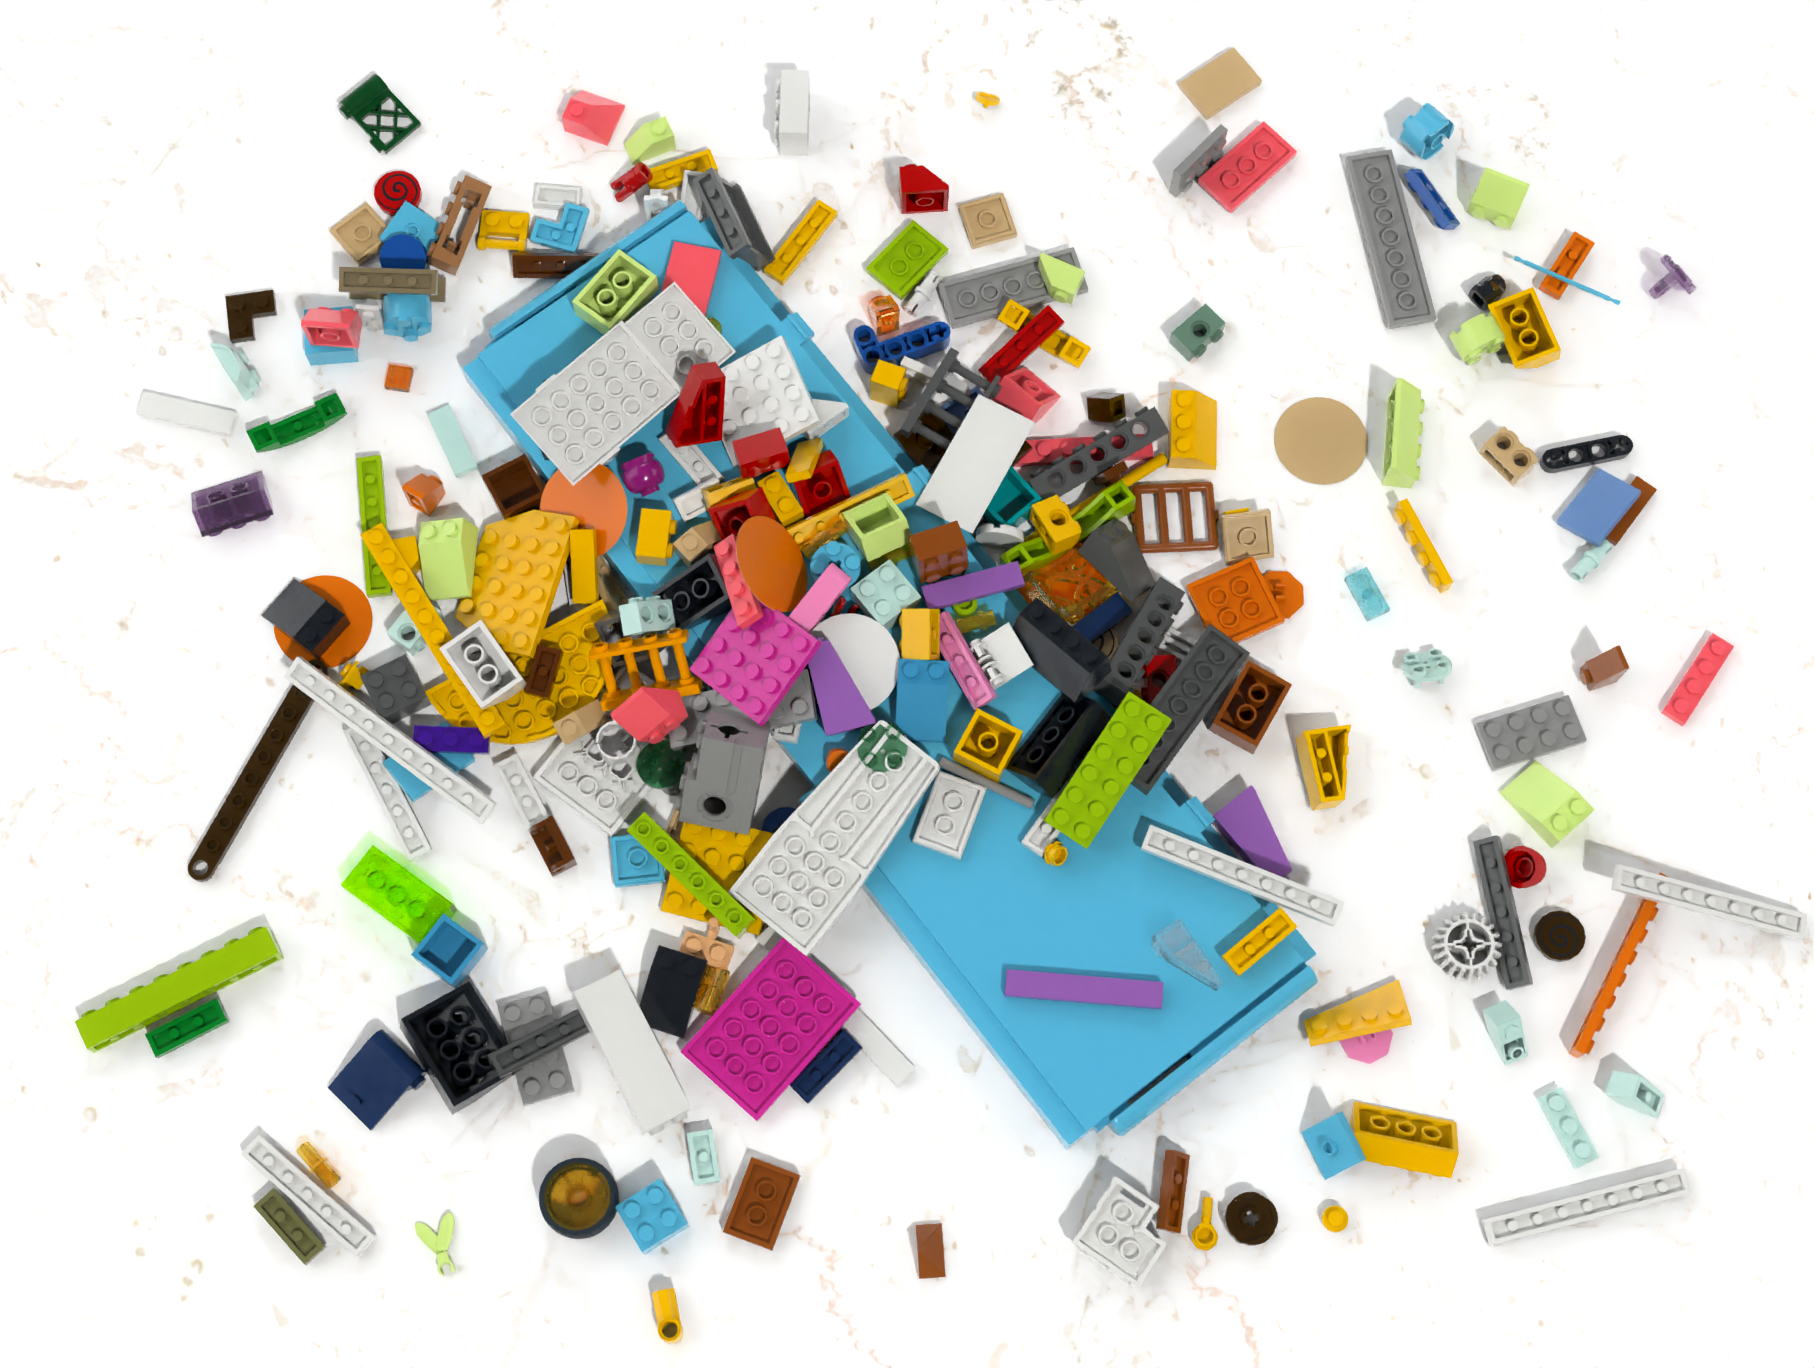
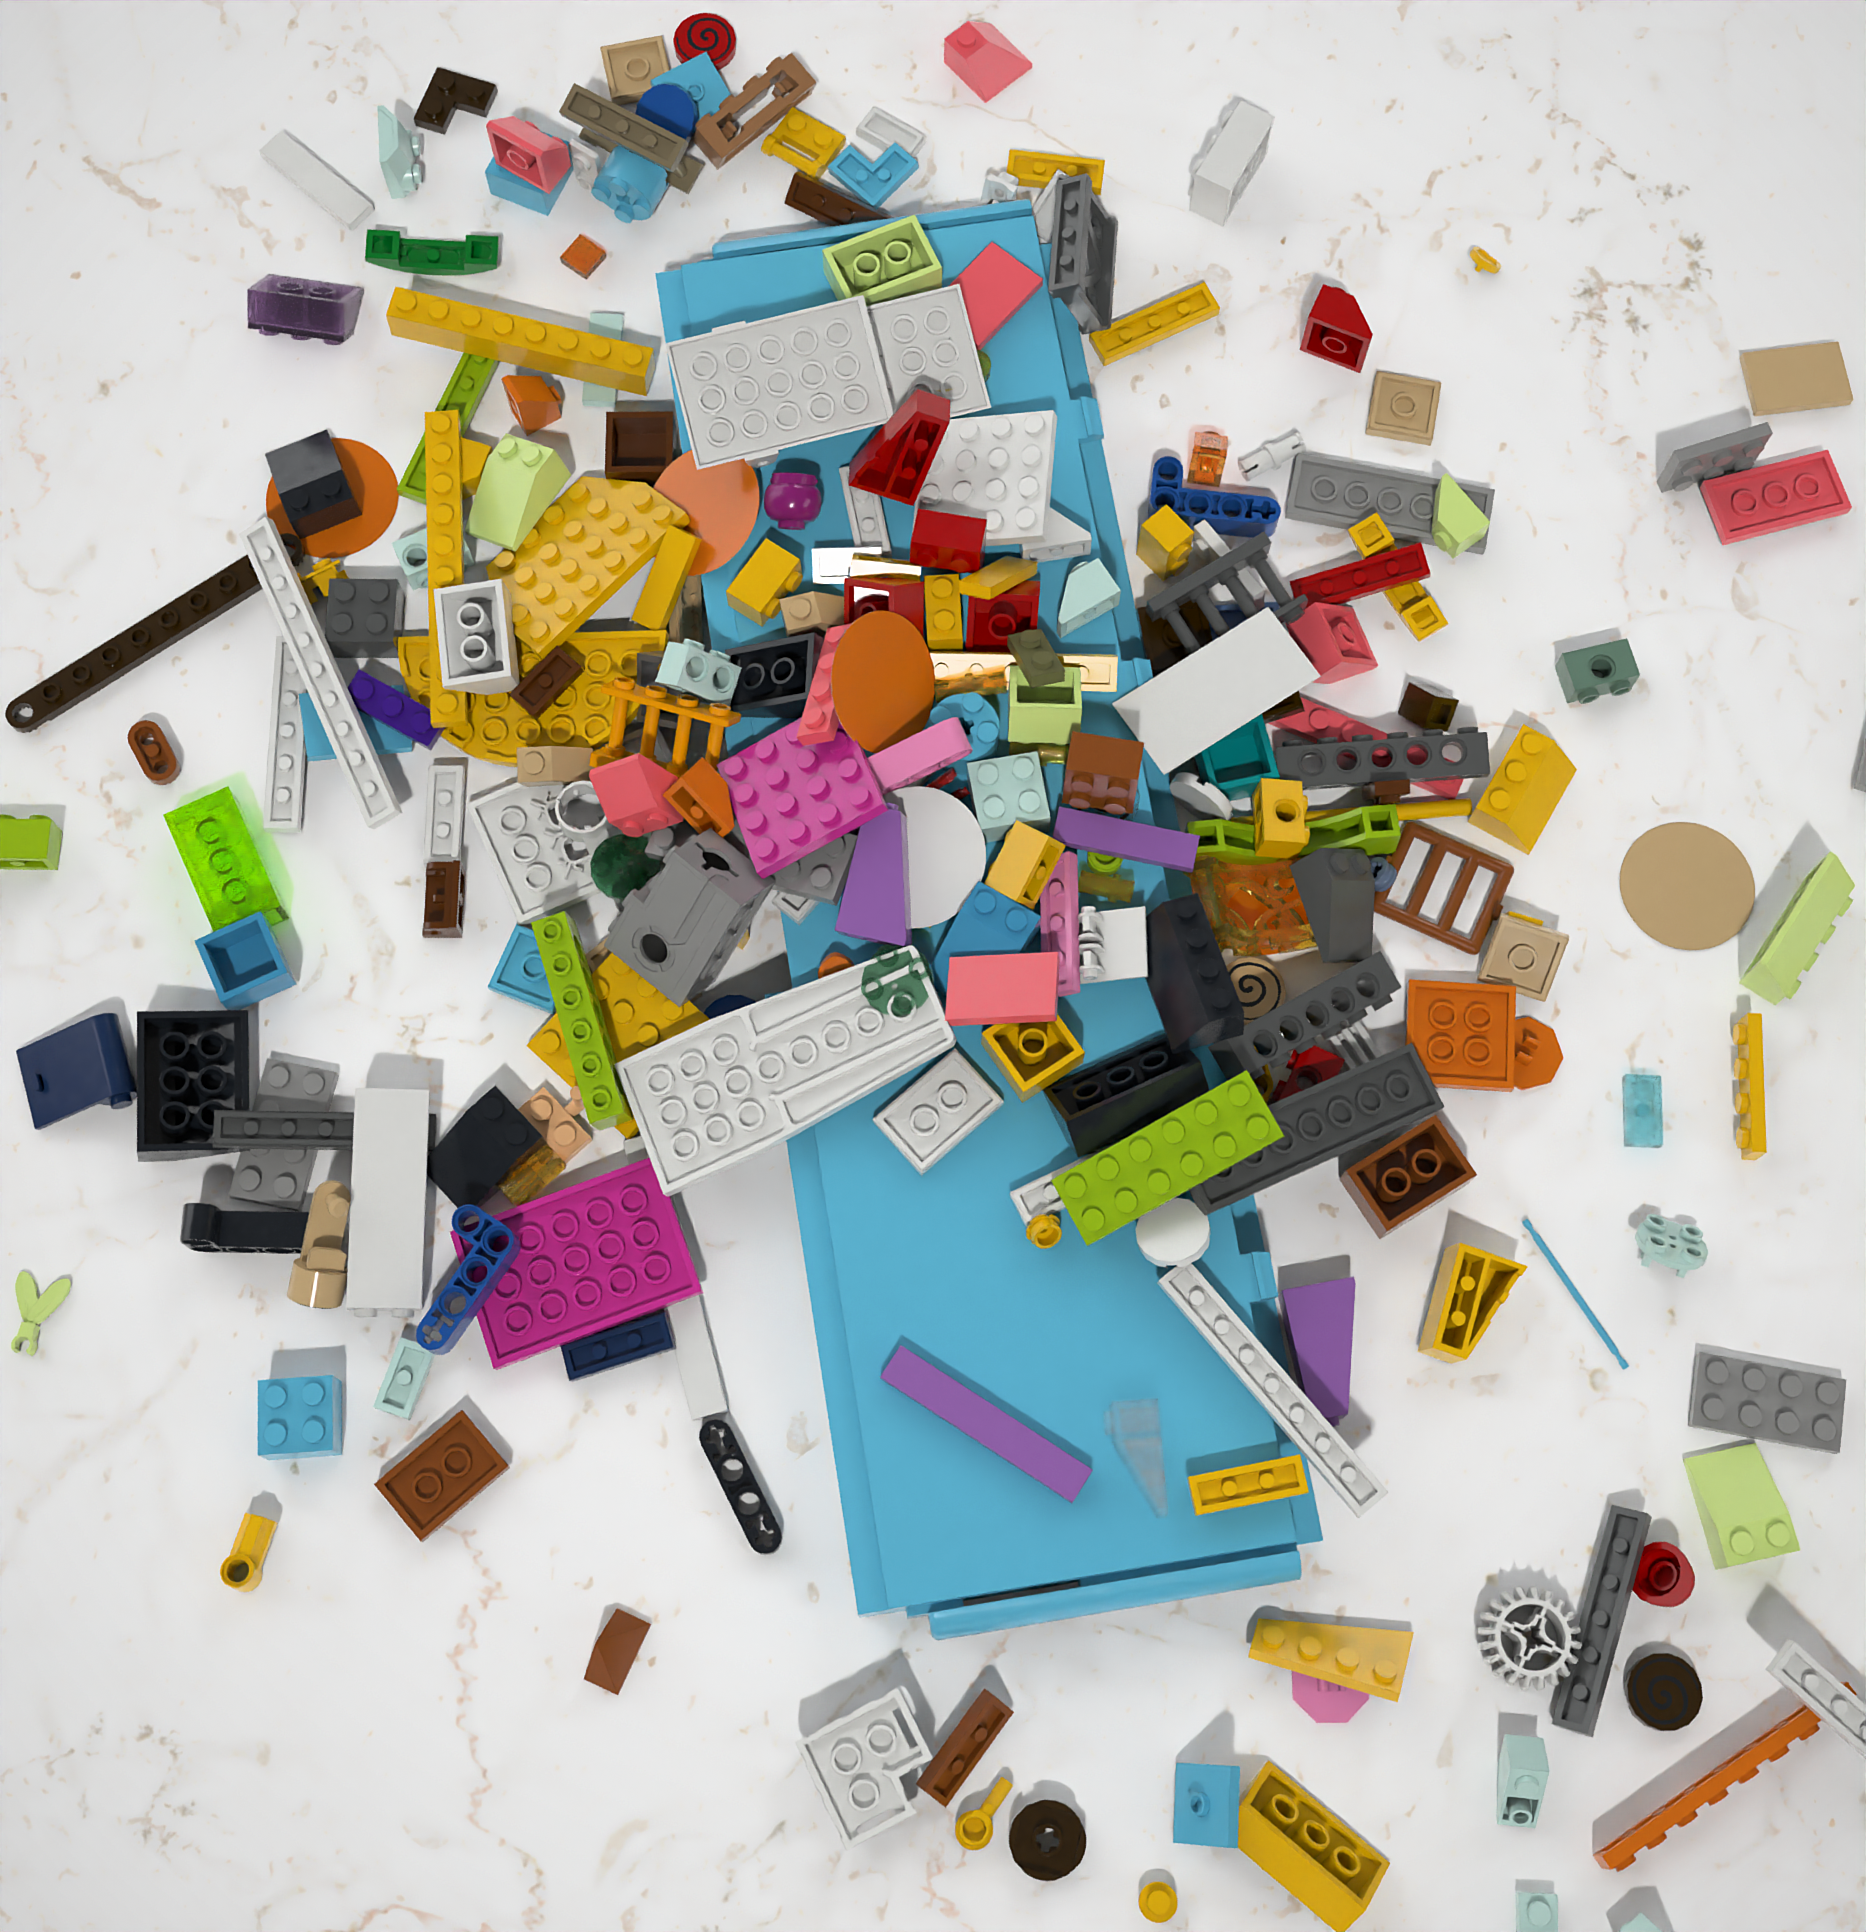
camera: 30 degrees right, 0 degrees up
(306, 849) = (154, 755): none -> dark orange plate
(395, 456) = (521, 341): none -> yellow brick
(558, 1116) = (218, 1231): none -> black beam
(564, 1183) = (200, 1331): clear yellow wheel -> none
(613, 1117) = (320, 1272): none -> tan piece
(632, 181) = (988, 154): red hinge -> none
(650, 141) = (1038, 119): yellowish green slope -> none
(695, 695) = (702, 799): none -> orange slope
(711, 1079) = (461, 1282): none -> blue beam
(856, 500) = (1036, 658): none -> olive plate
(863, 443) = (1087, 595): none -> light aqua slope
(907, 260) = (1274, 407): lime plate -> none
(951, 718) = (1002, 989): none -> coral tile
(951, 1109) = (736, 1489): none -> black beam
(986, 782) = (1008, 1095): light grey bar -> none
(1103, 618) = (1274, 968): dark blue tile -> none
(1134, 814) = (1173, 1233): none -> white tile
(1136, 526) = (1383, 873): none -> sand blue bush
(1385, 726) = (1589, 1314): none -> medium azure piece

